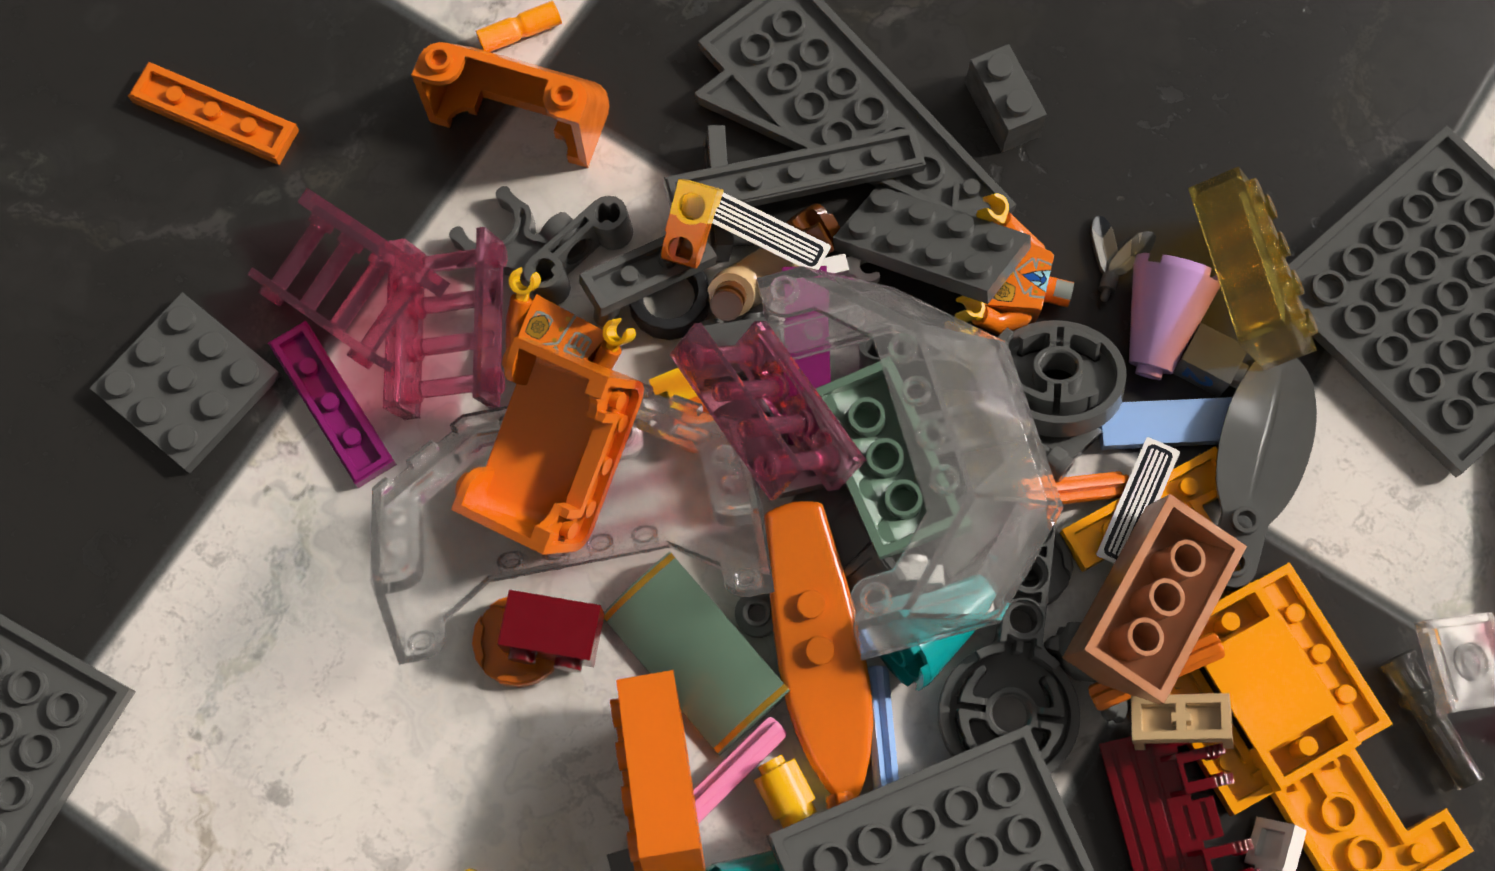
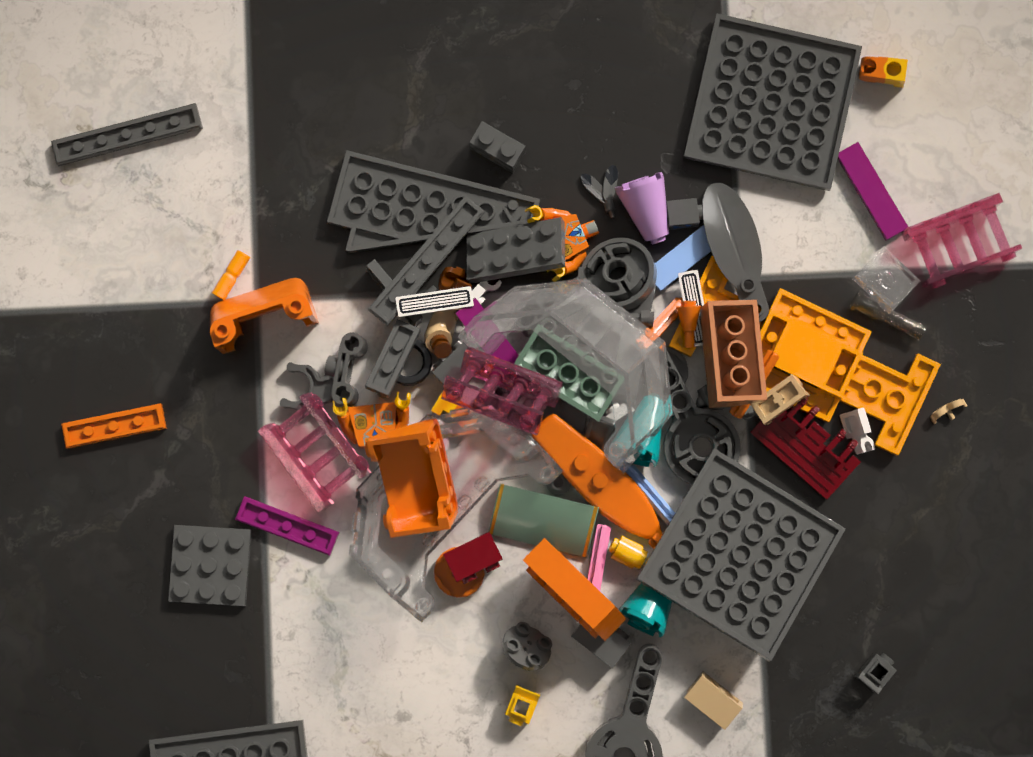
camera: 35 degrees left, 10 degrees up
(383, 260) = (265, 442): clear pink fence -> none
(535, 843) = (528, 639): none -> dark grey plate
(690, 222) = (399, 323): leg -> none
(1122, 504) = (688, 317): none -> orange cone
(1253, 268) = (673, 159): clear yellow brick -> none

